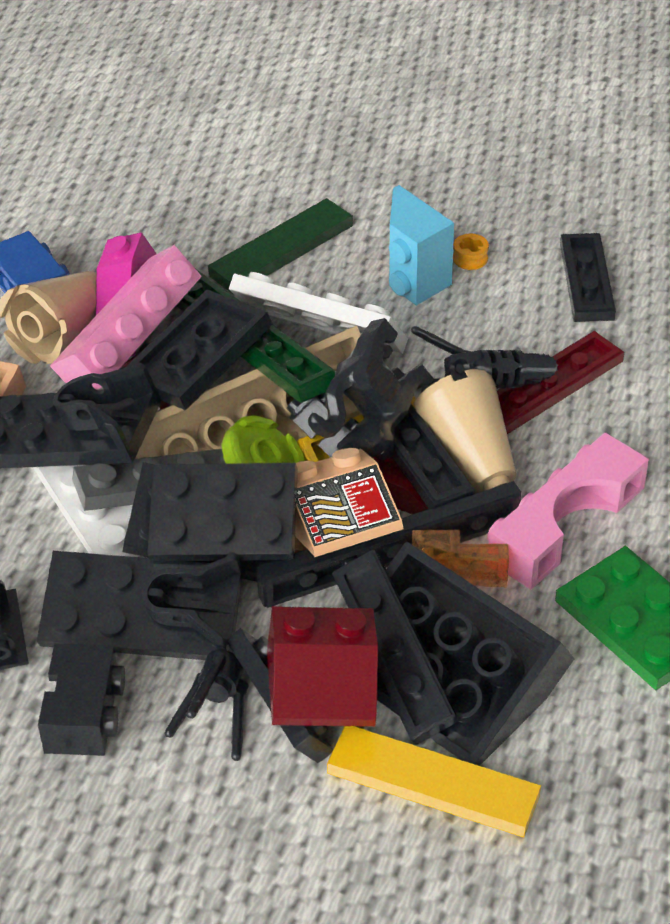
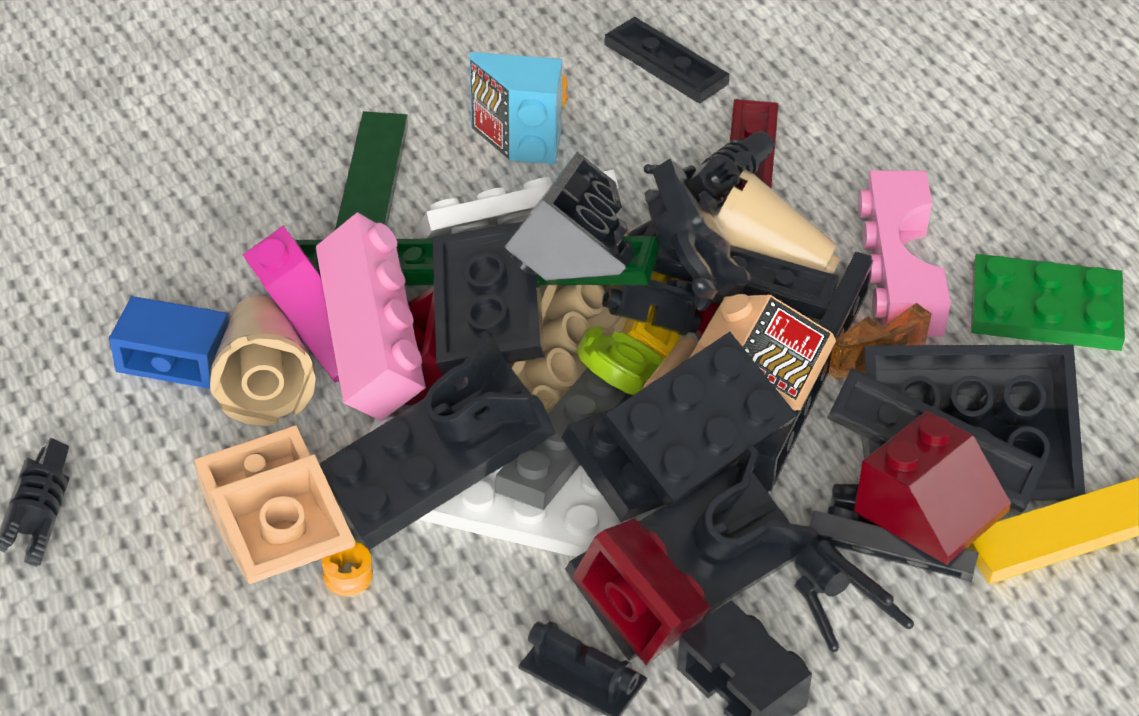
camera: 45 degrees left, 0 degrees up
(51, 589) = (640, 588): none -> dark red slope
(286, 326) = (574, 227): none -> wedge

